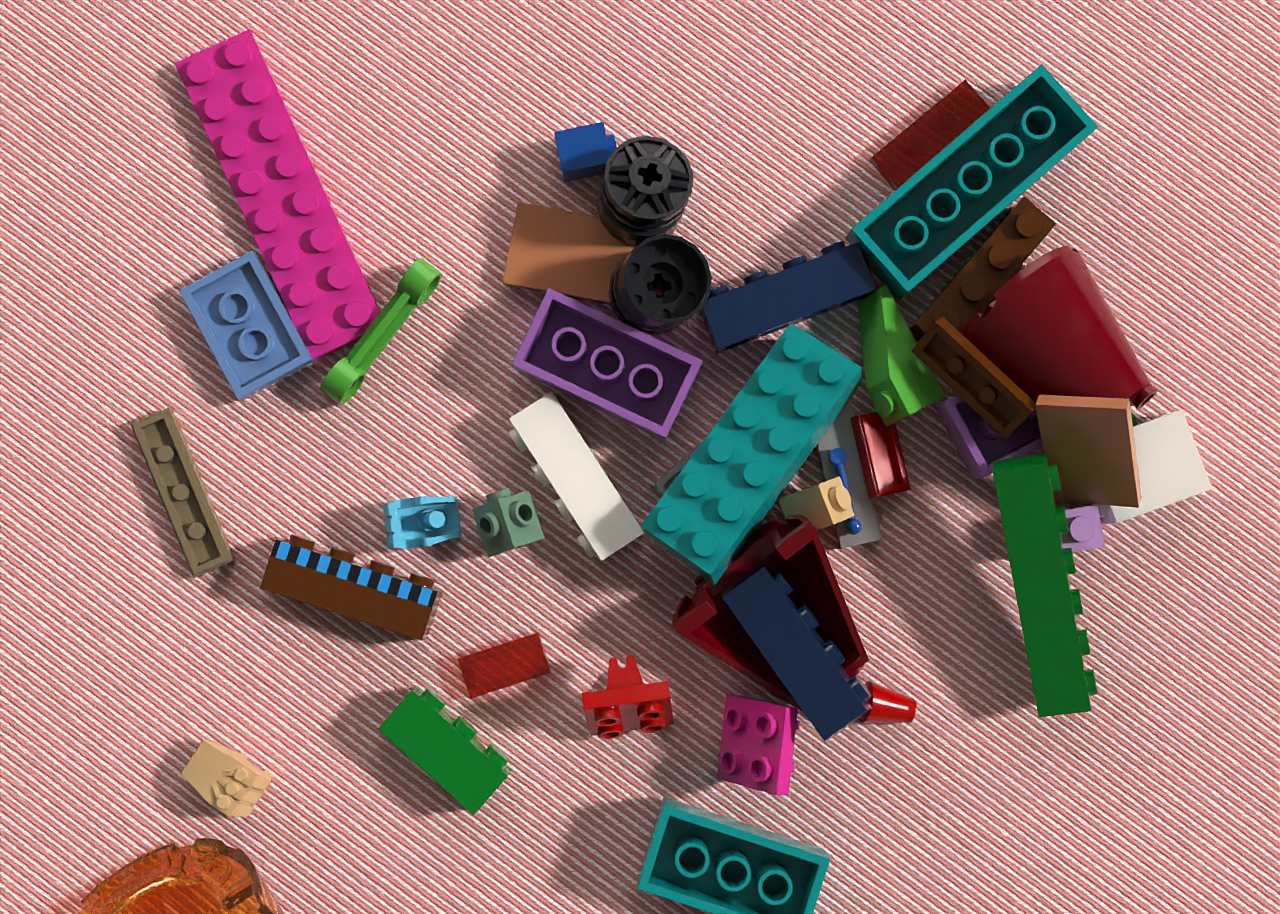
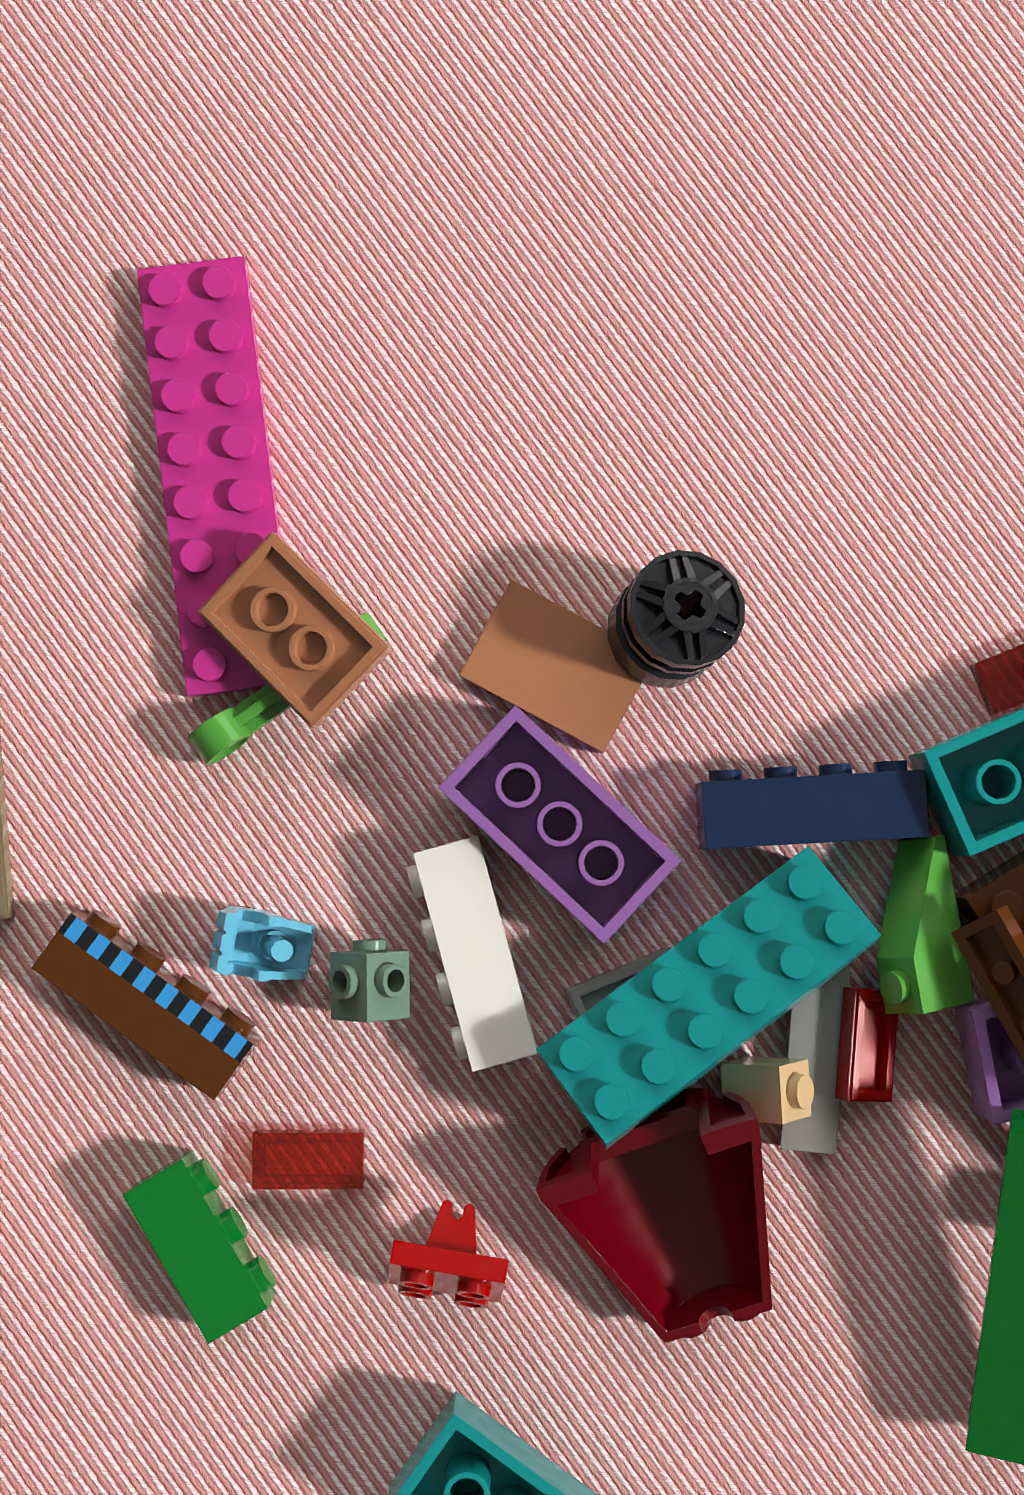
camera: 15 degrees right, 0 degrees up
(246, 325) = (121, 627): medium blue plate -> none
(372, 285) = (294, 630): none -> nougat tile
(584, 150) = (616, 542): blue brick -> none
(672, 267) = (686, 740): black wheel -> none
(758, 744) = (596, 1369): dark pink plate -> none
(798, 653) = (685, 1275): dark blue brick -> none
(837, 458) = (812, 1033): blue hinge -> none
(888, 706) = (767, 1365): red cone -> none

